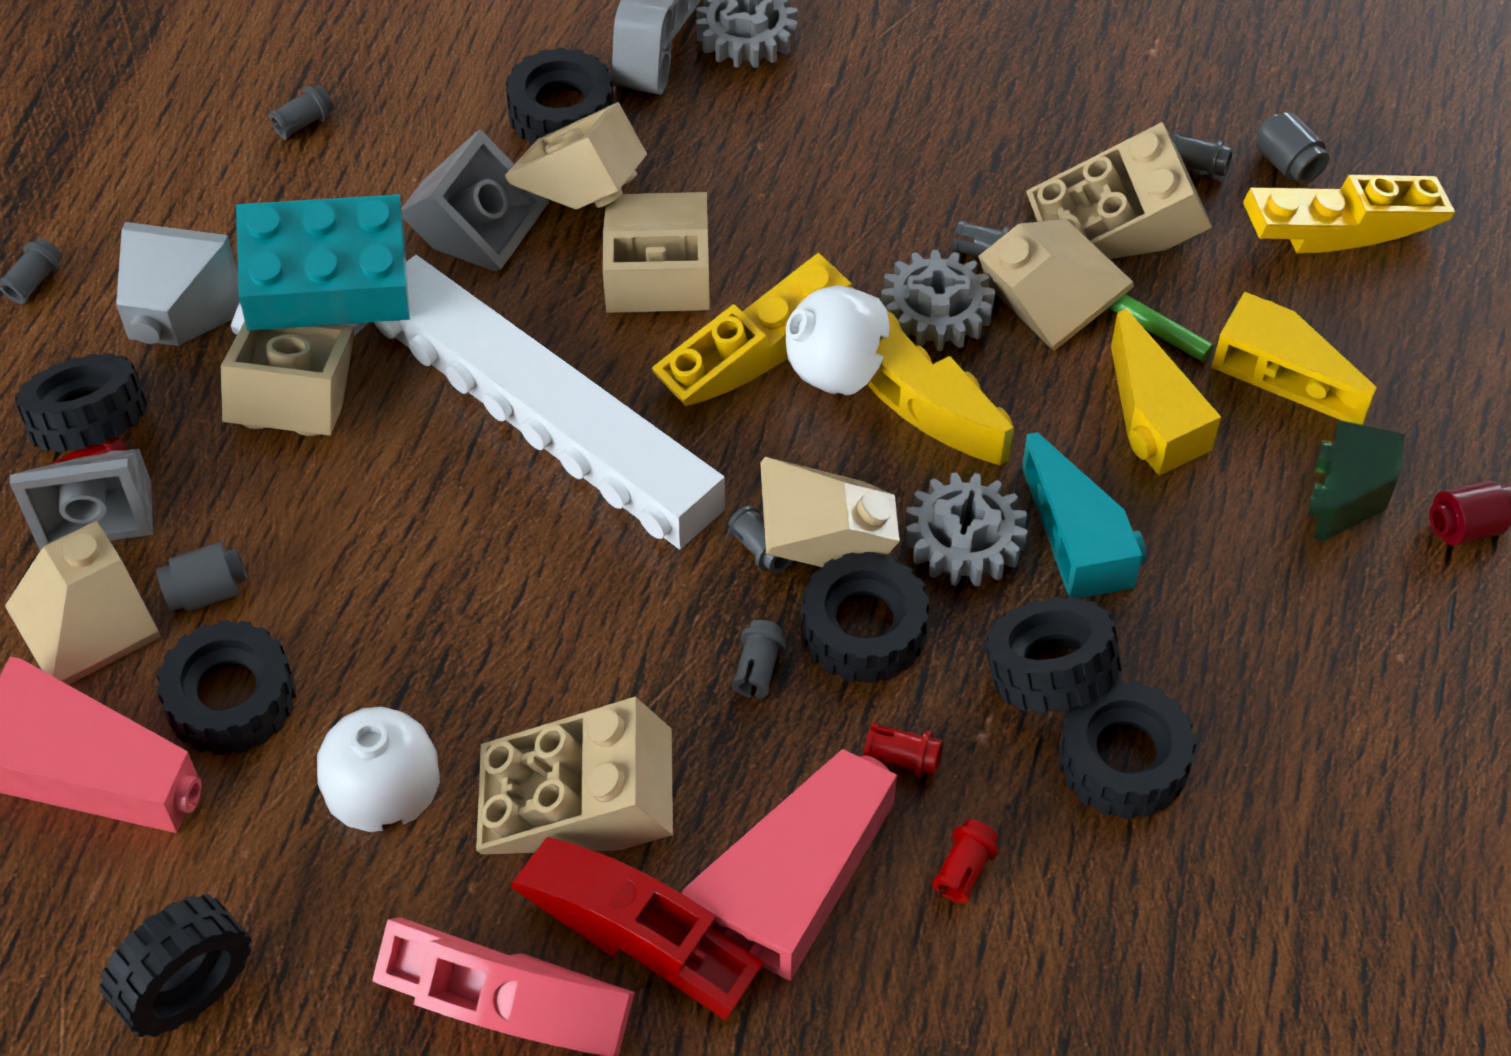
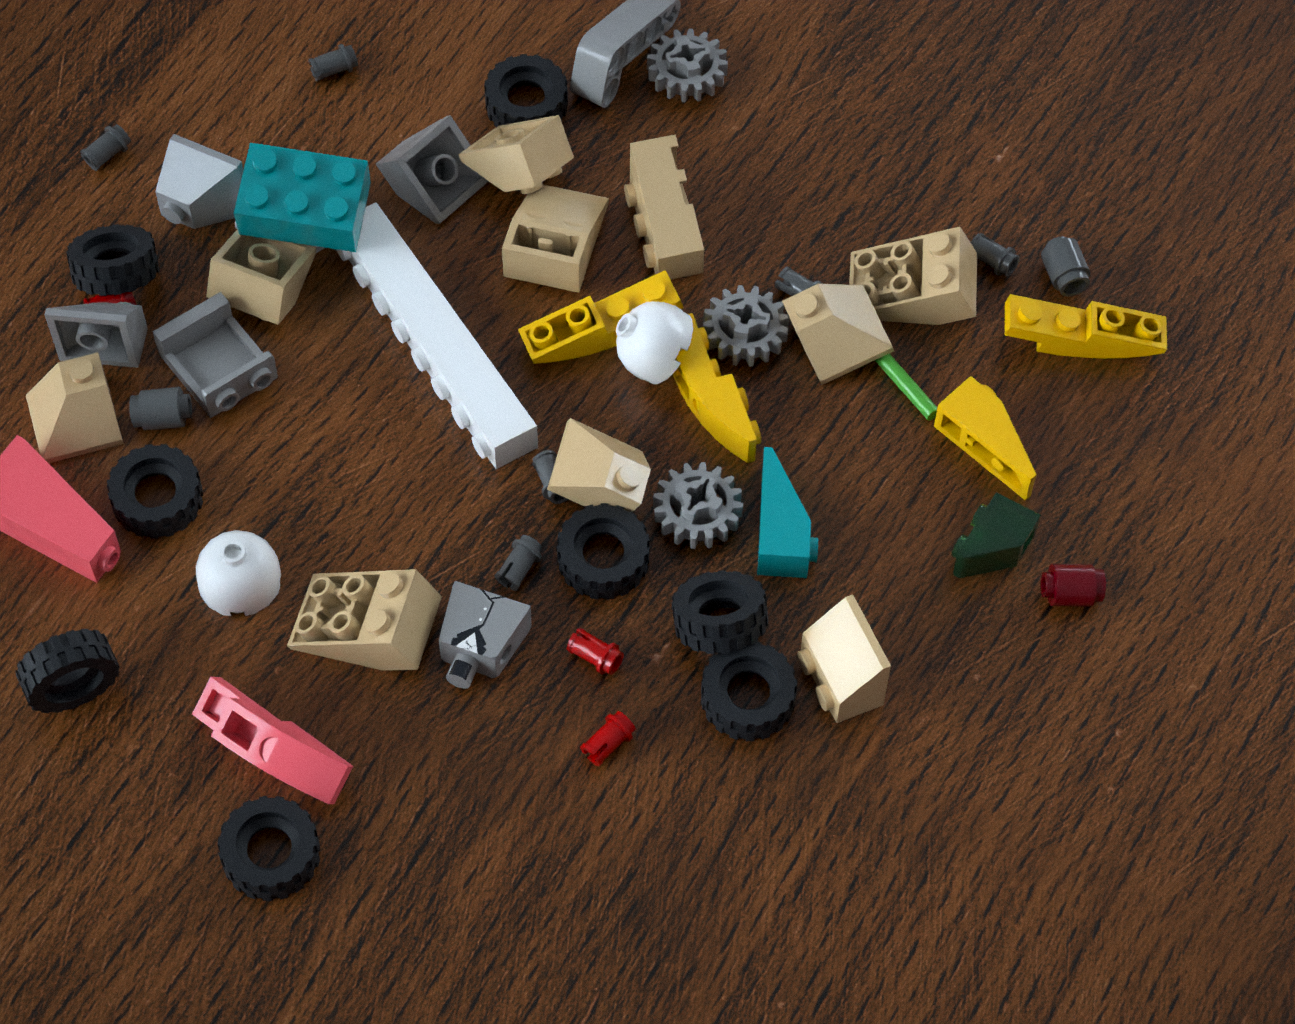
camera: 15 degrees right, 5 degrees up
(255, 493) = (214, 356): none -> light grey panel
(642, 917) = (375, 720): red slope -> none
(741, 761) = (480, 633): none -> light grey torso
(780, 185) = (663, 209): none -> tan wedge
(796, 862) = (492, 710): coral slope -> none
(1161, 407) = (877, 452): yellow slope -> none
(1244, 674) = (845, 661): none -> slope

